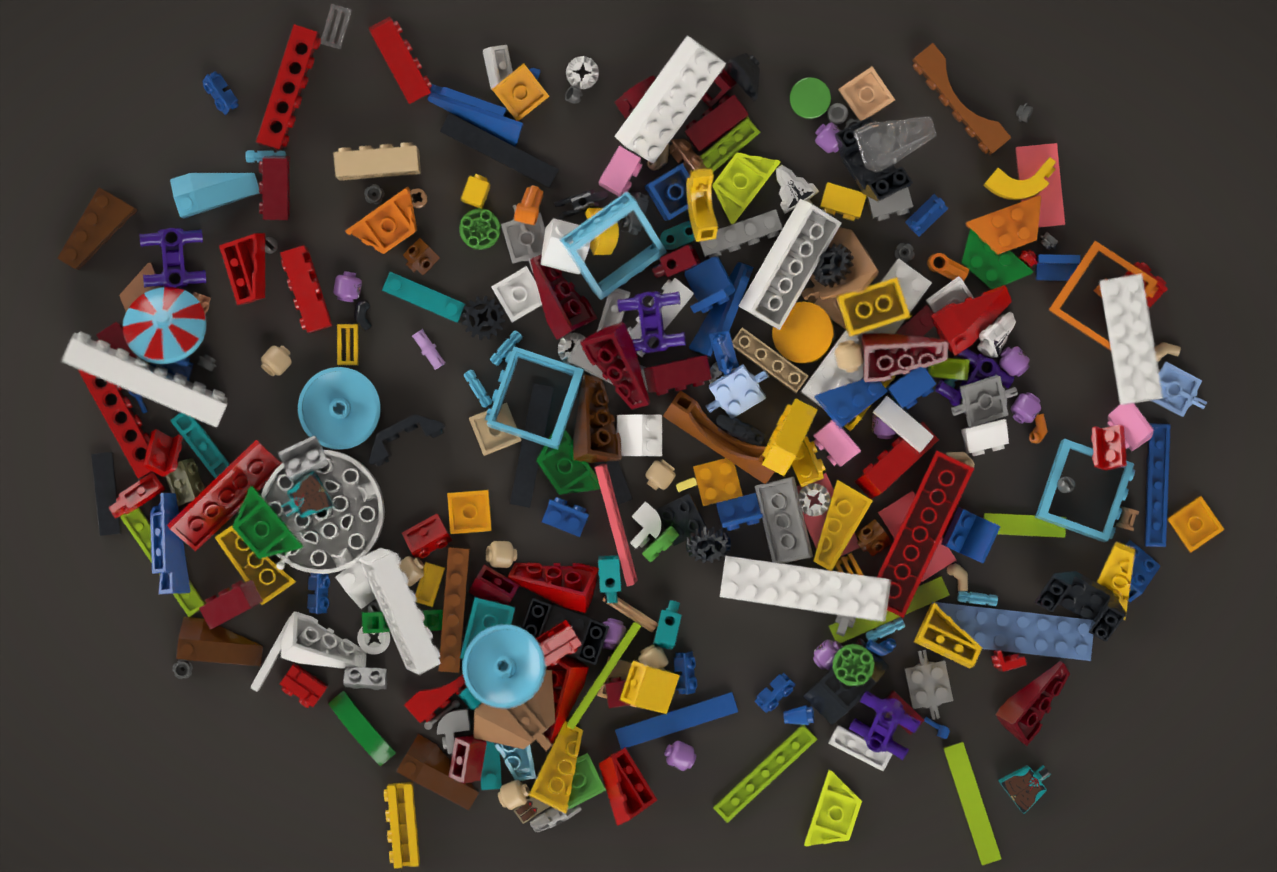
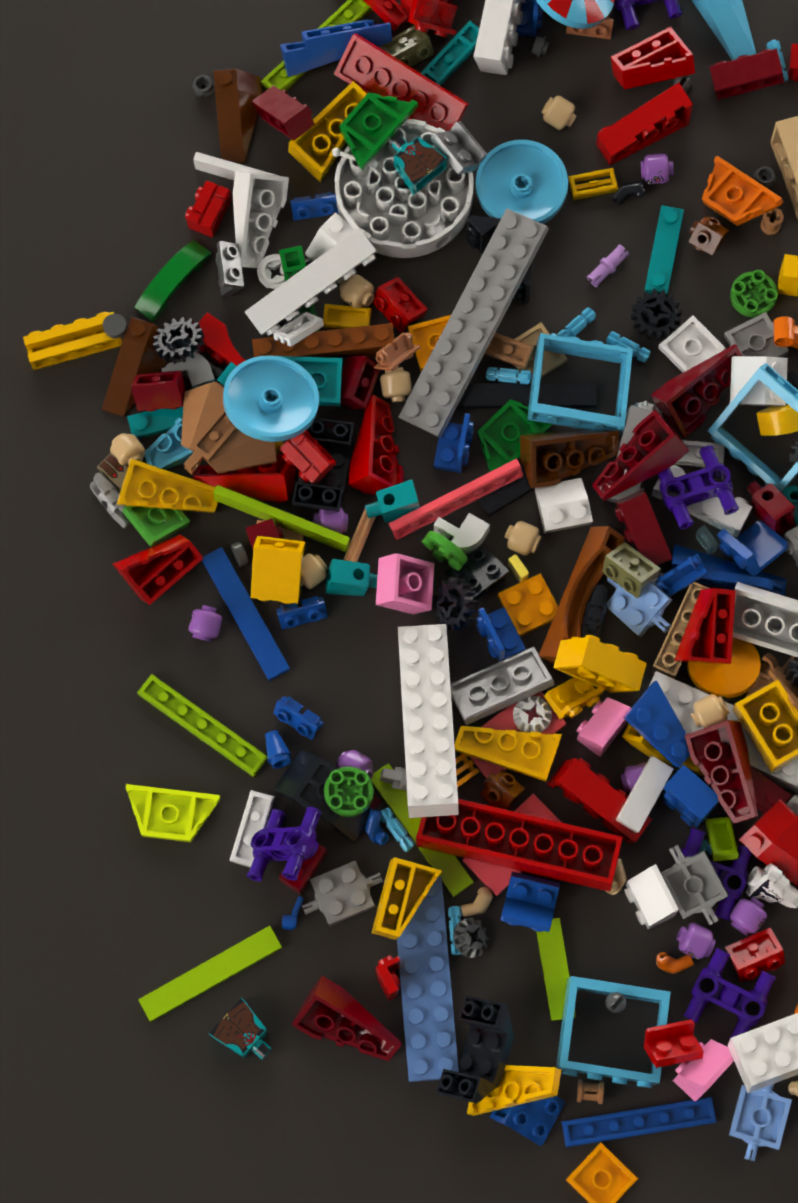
camera: 85 degrees right, 15 degrees down
(402, 787) = (114, 326): none -> dark grey tile
(427, 734) = (179, 340): none -> black gear
(440, 627) = (298, 329): none -> white tile
(464, 478) = (473, 322): none -> light grey plate
(480, 552) = (390, 358): none -> nougat hinge
(484, 459) = (510, 351): none -> medium nougat tile
(512, 456) = (508, 375): none -> medium azure axle
(626, 715) = (239, 554): none -> dark grey tile
(683, 583) = (405, 584): none -> bright pink brick
(693, 321) = (706, 540): none -> clear light blue tile
(711, 393) = (630, 569): none -> olive bracket
(779, 340) = (709, 629): none -> red wedge
(989, 595) = (463, 940): none -> dark grey gear
(1046, 362) = (756, 954): none -> red bracket
(1075, 391) = (729, 995): none -> dark purple piece

